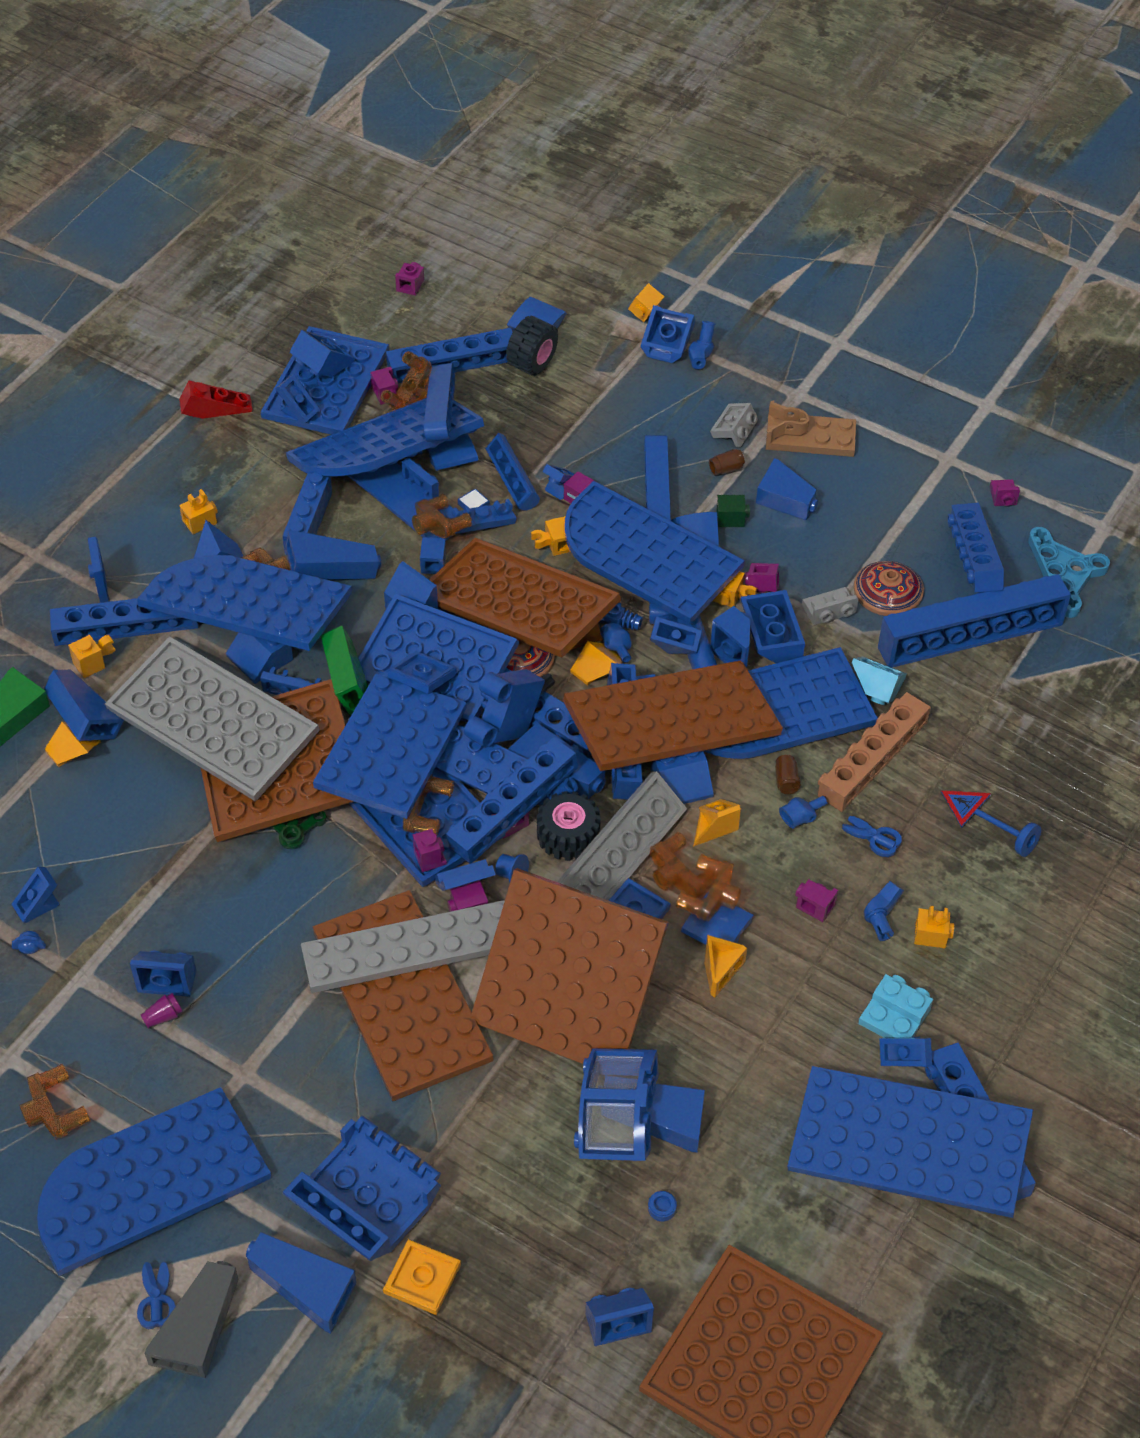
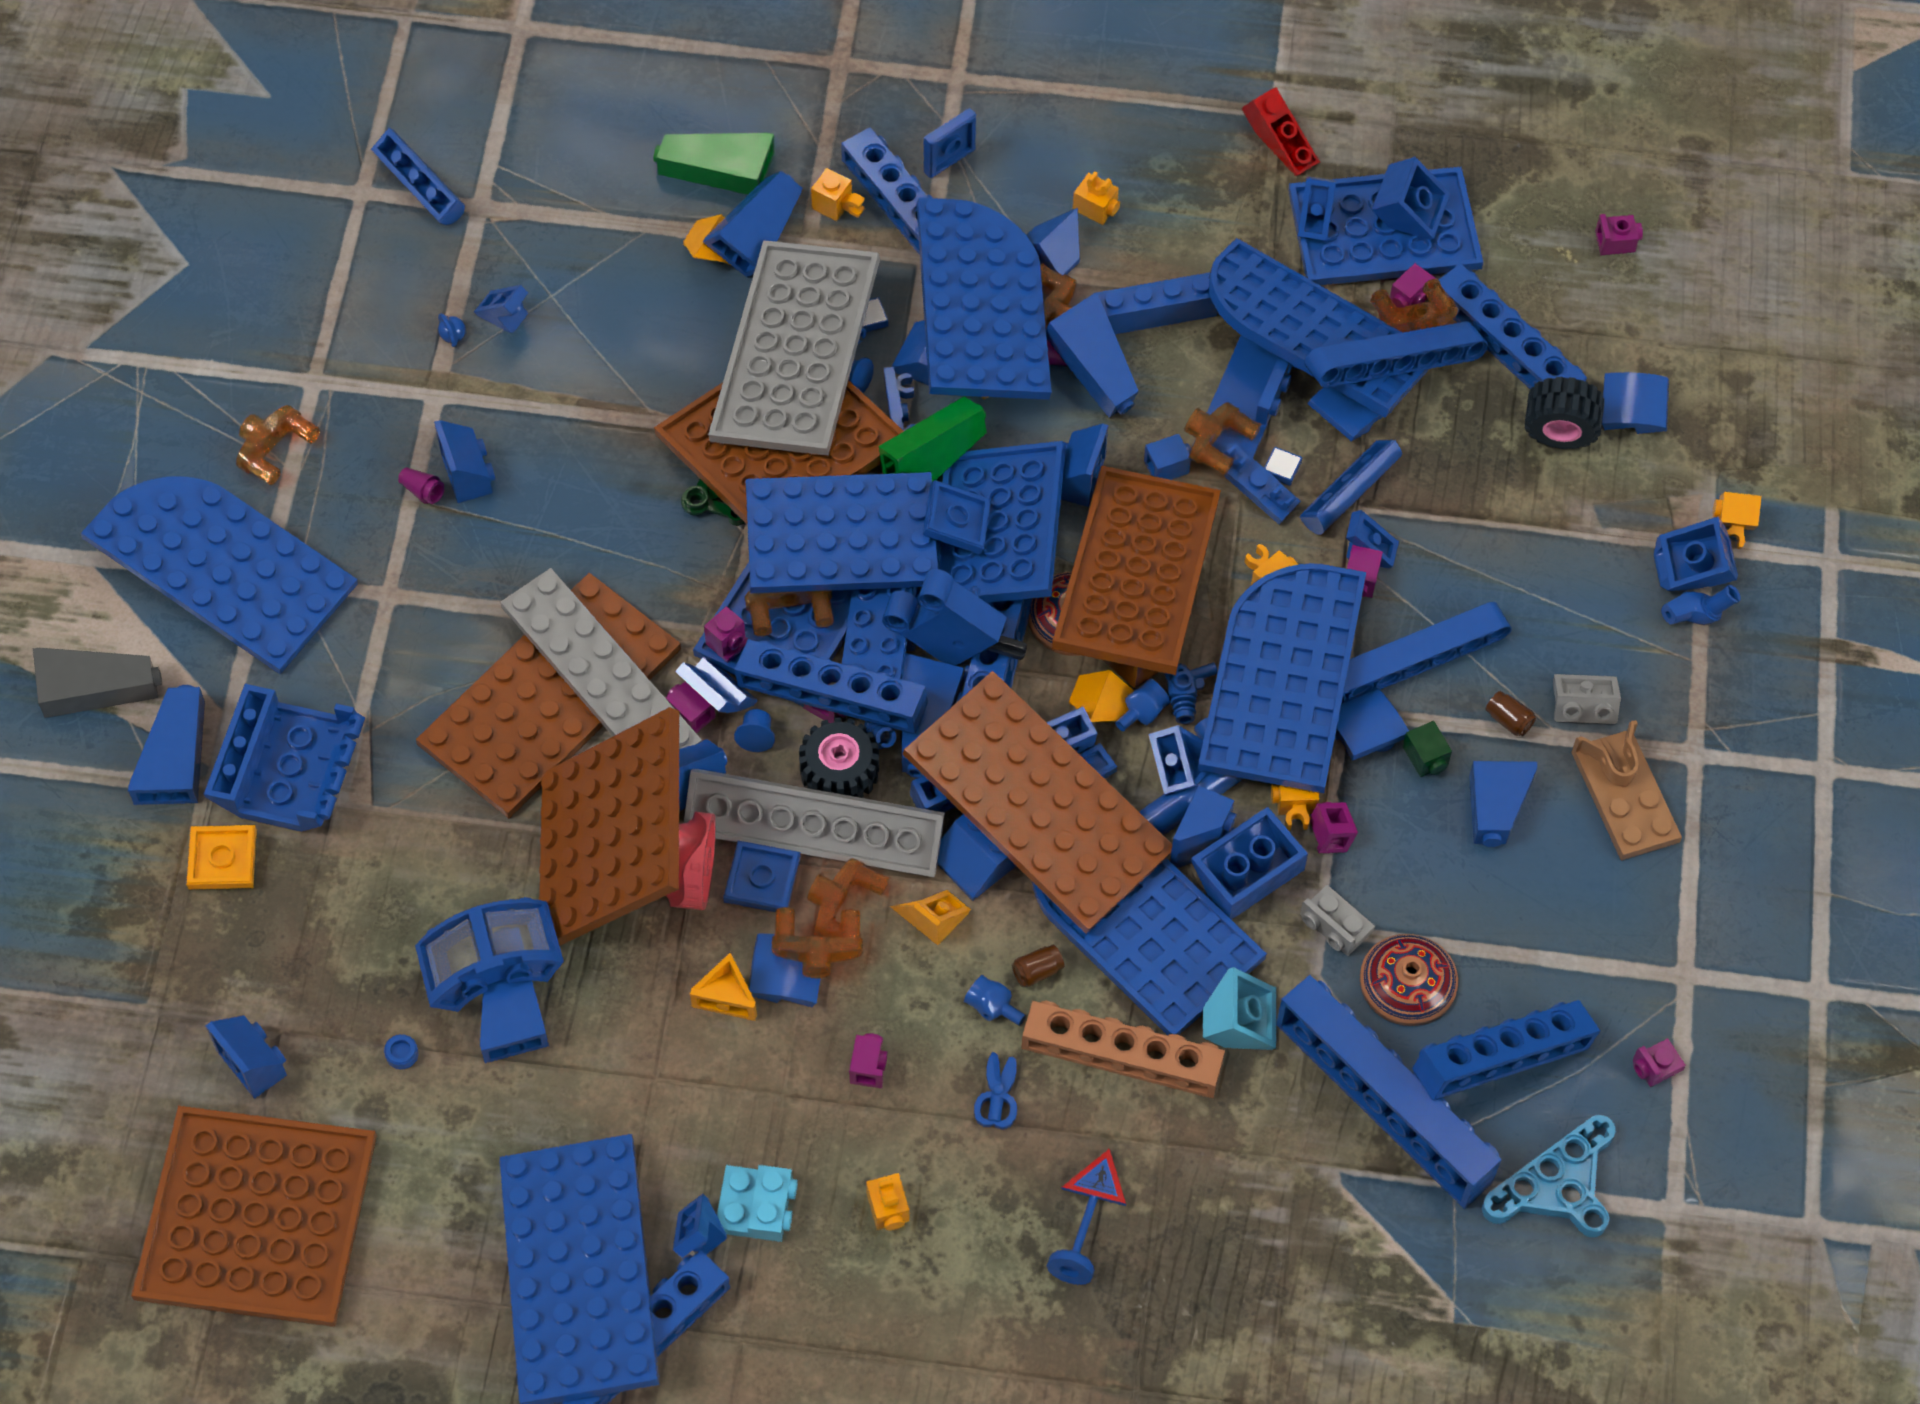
camera: 65 degrees right, 10 degrees up
(157, 1292) = (111, 632): blue piece -> none
(880, 907) = (891, 1134): blue arm -> none

